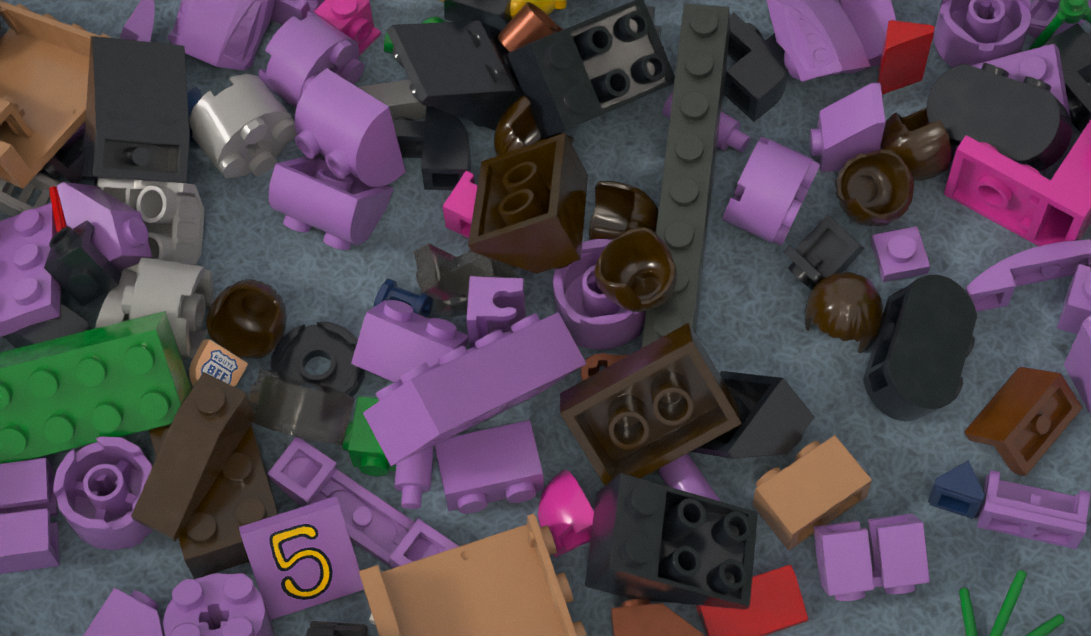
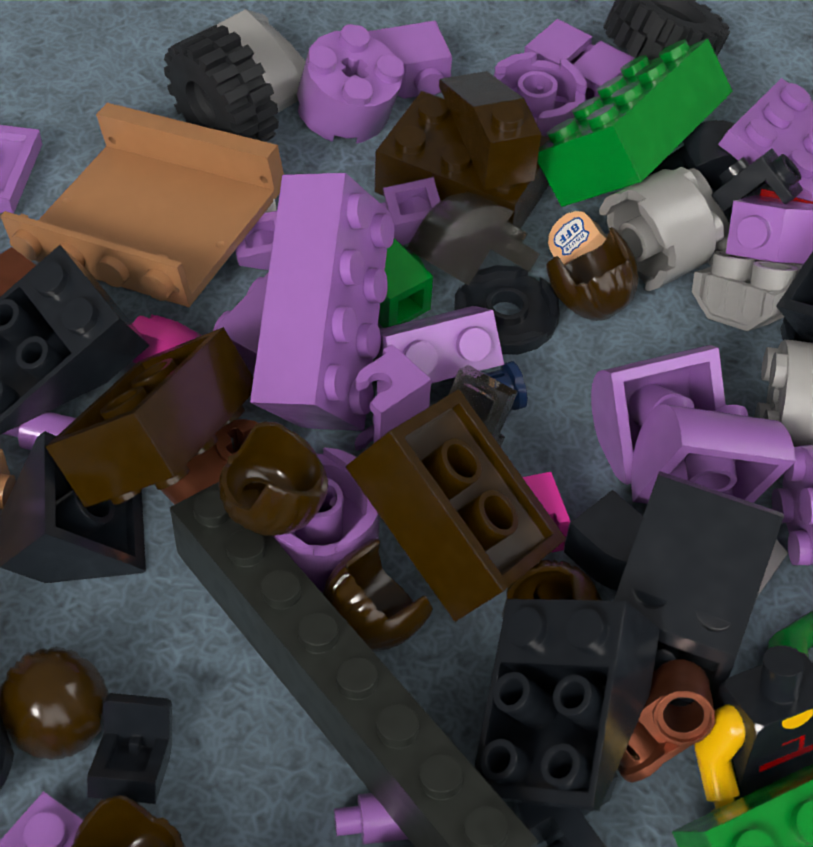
camera: 130 degrees right, 10 degrees down
(302, 557) = (359, 146): medium lavender tile -> none
(770, 191) = (242, 758): medium lavender brick -> none

